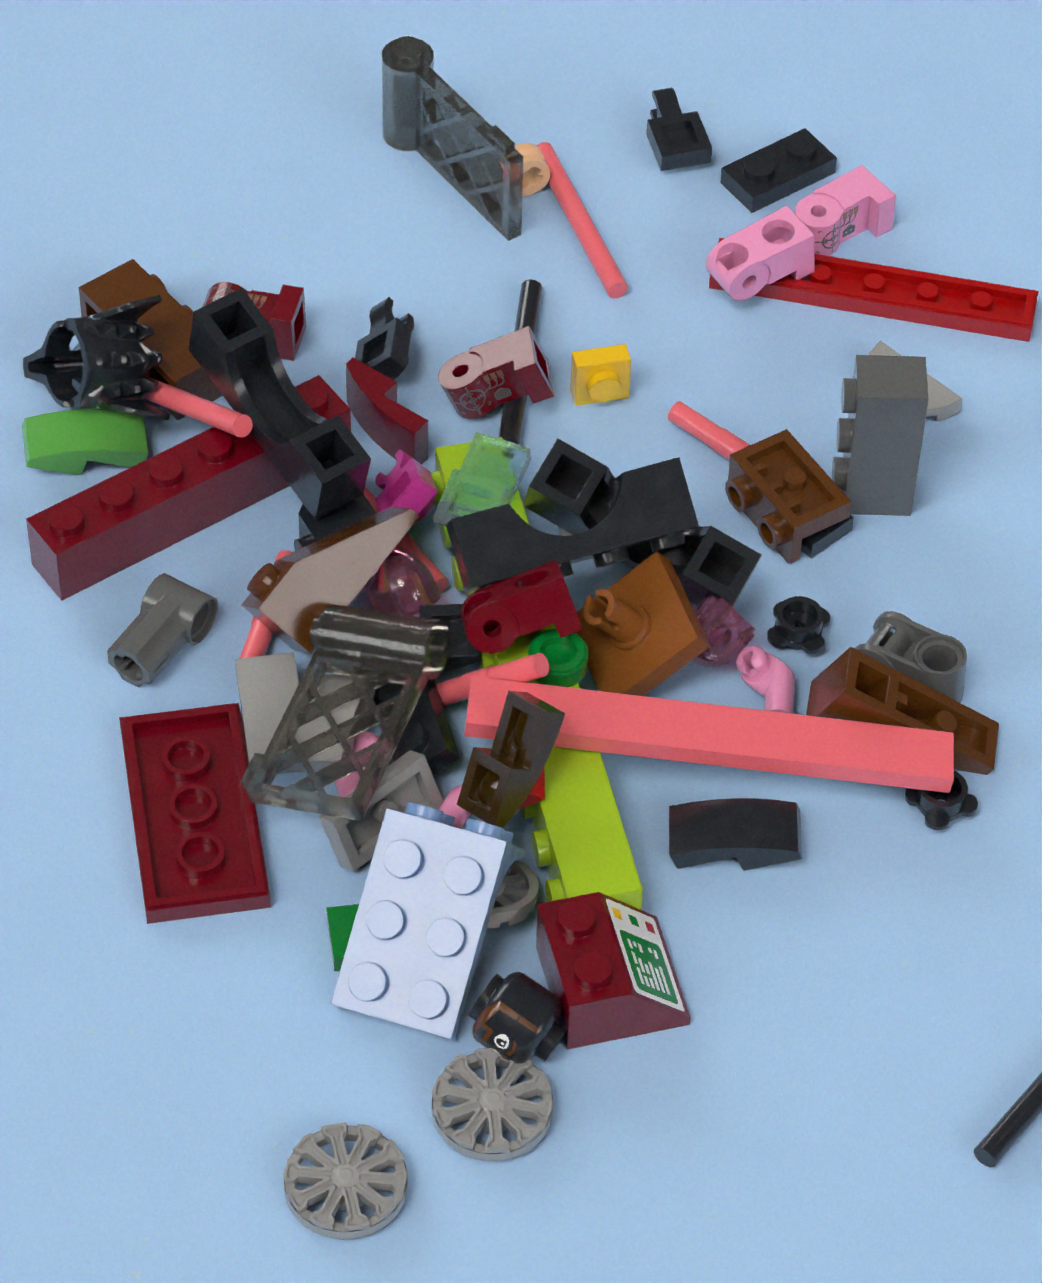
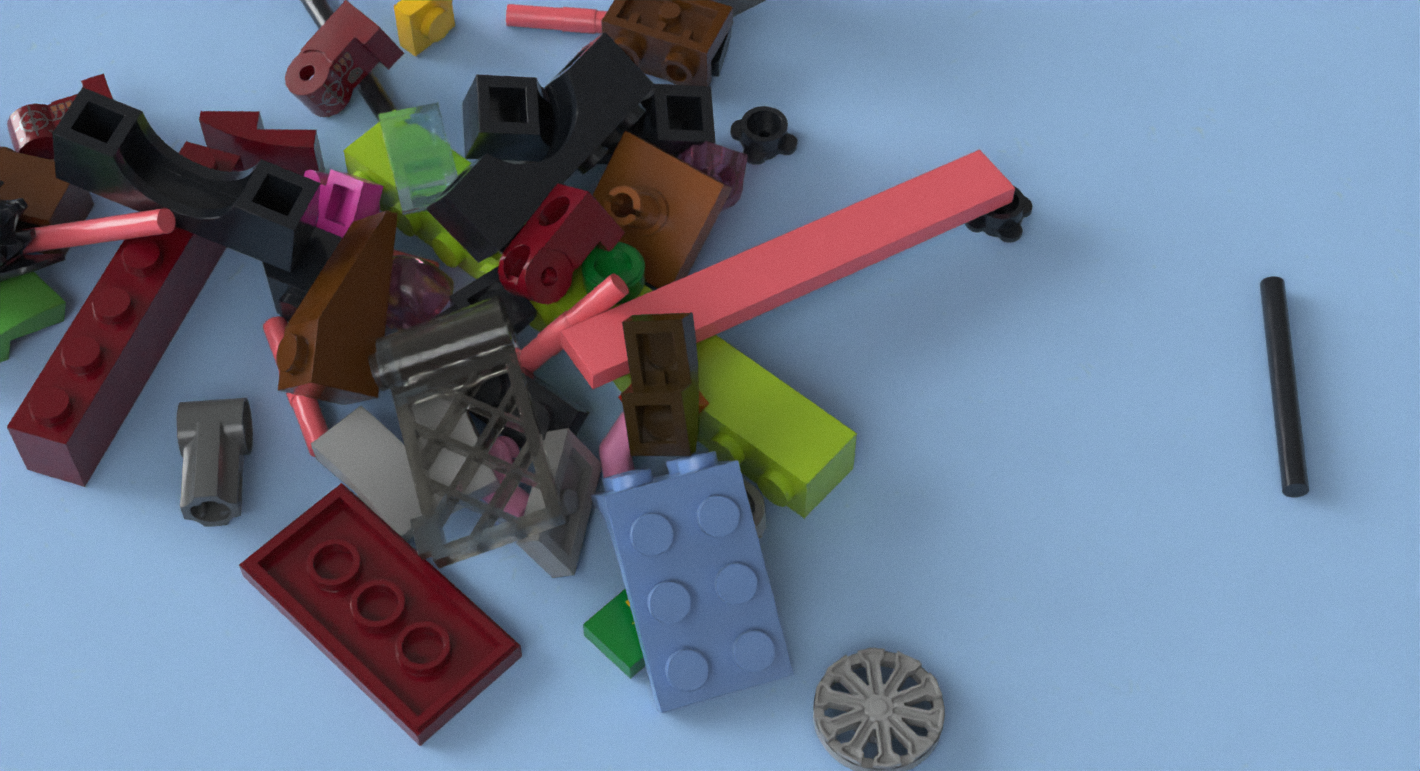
camera: 35 degrees left, 5 degrees up
(388, 341) = (212, 84): black plate -> none
(517, 1018) = (840, 618): black head -> none
(607, 969) = (870, 528): dark red slope -> none
(744, 828) = (865, 336): black slope -> none
(768, 678) = (781, 193): bright pink arm -> none
(873, 692) = (887, 154): reddish brown slope -> none
(918, 653) = (887, 114): dark grey piece -> none

